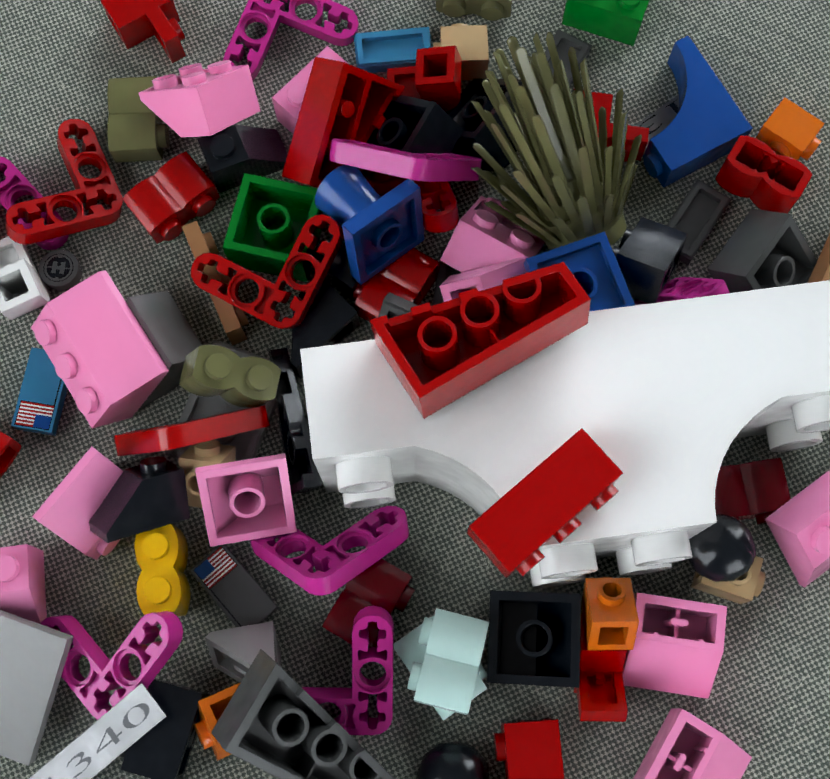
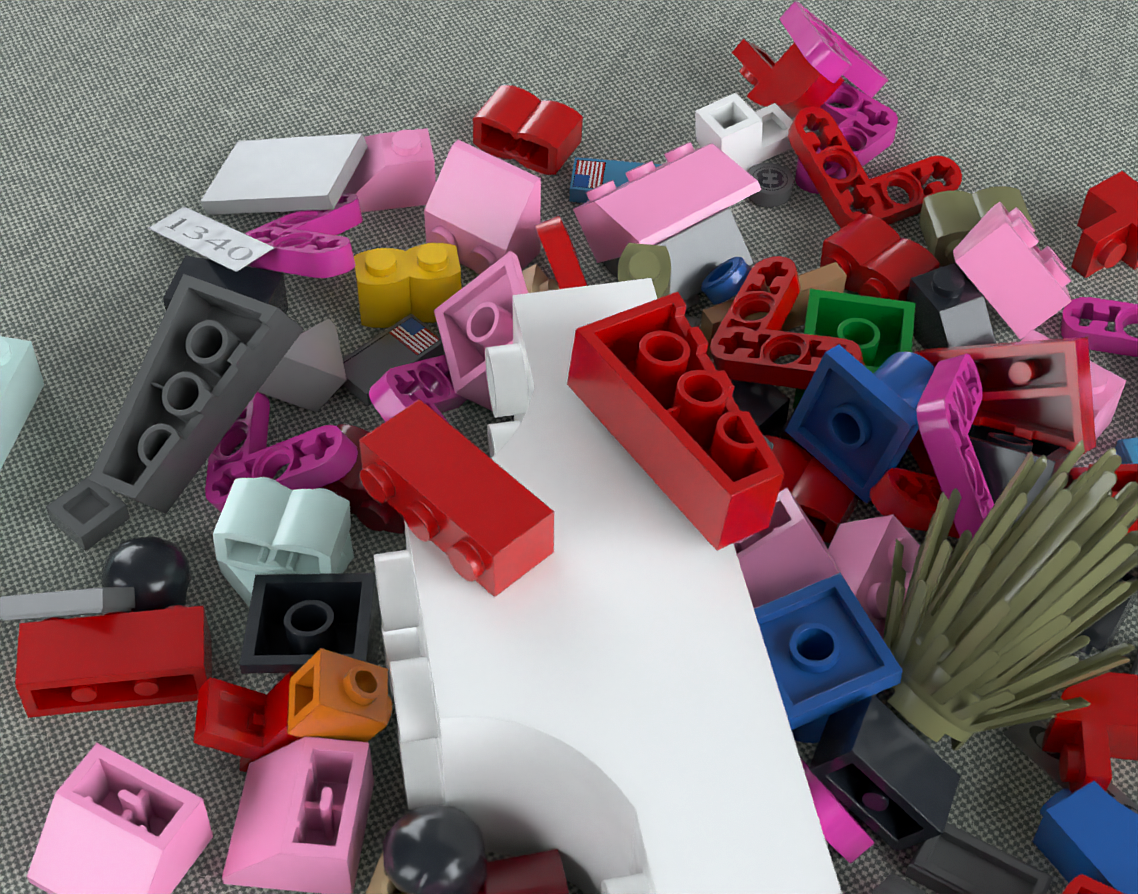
camera: 85 degrees right, 25 degrees down
(142, 500) = (481, 236): black slope -> none
(197, 310) = (725, 280): none -> blue tile

